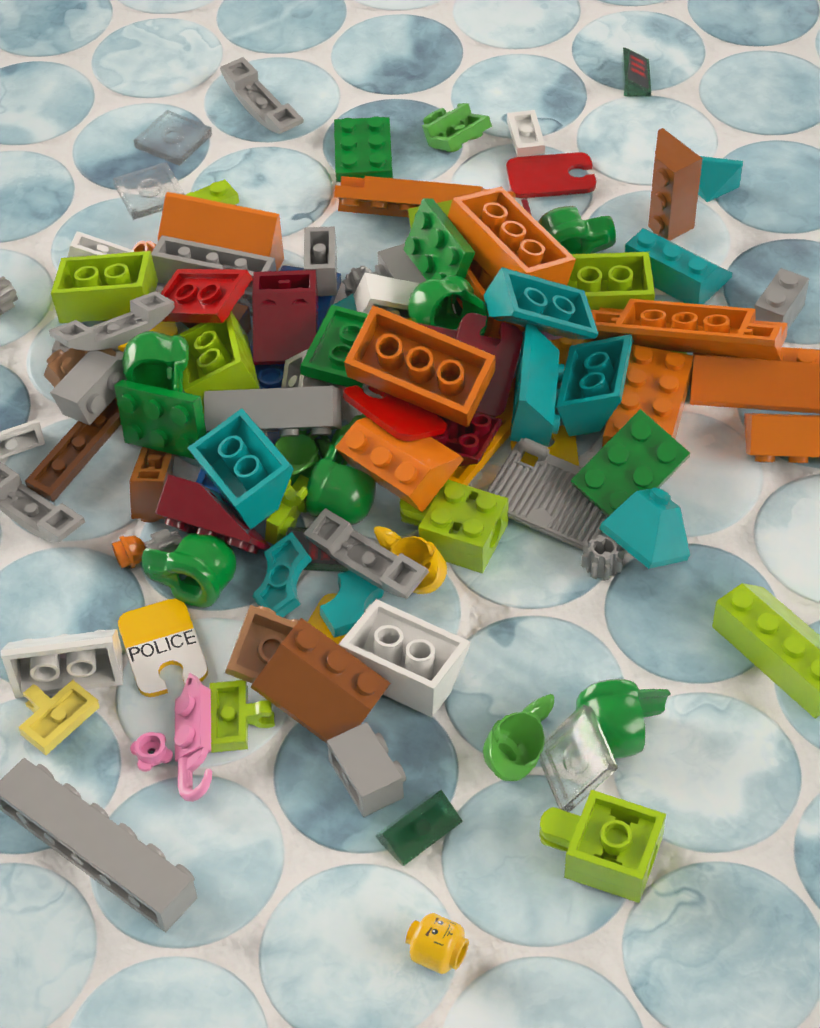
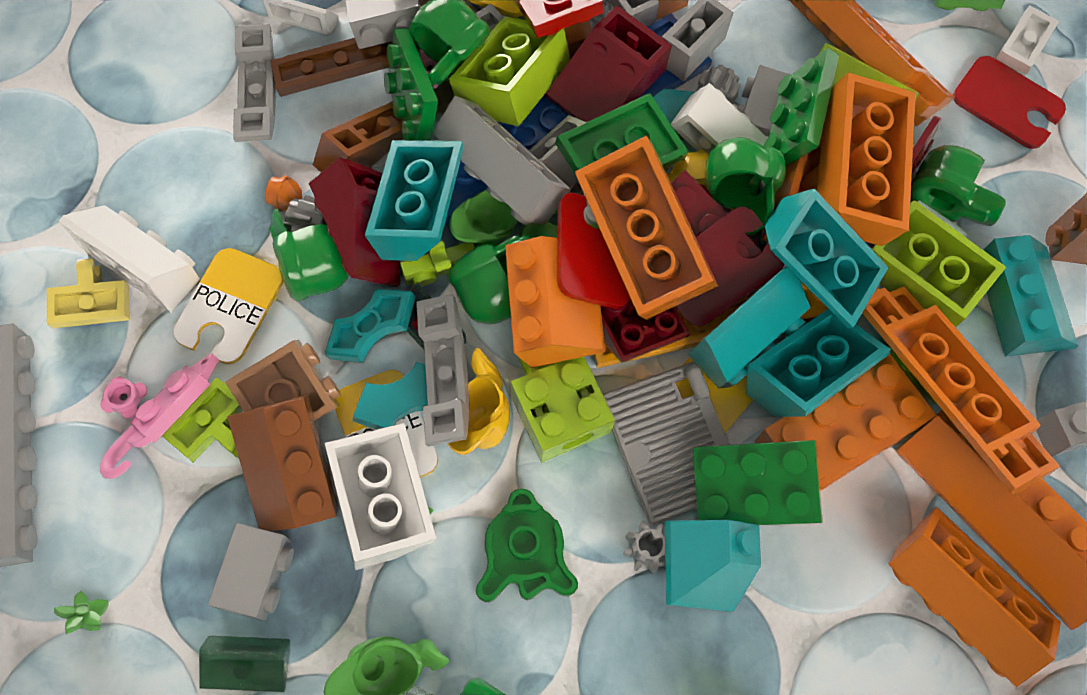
camera: 35 degrees right, 20 degrees up
(276, 886) = (83, 614): none -> bright green plant
(528, 623) = (524, 550): none -> green tile

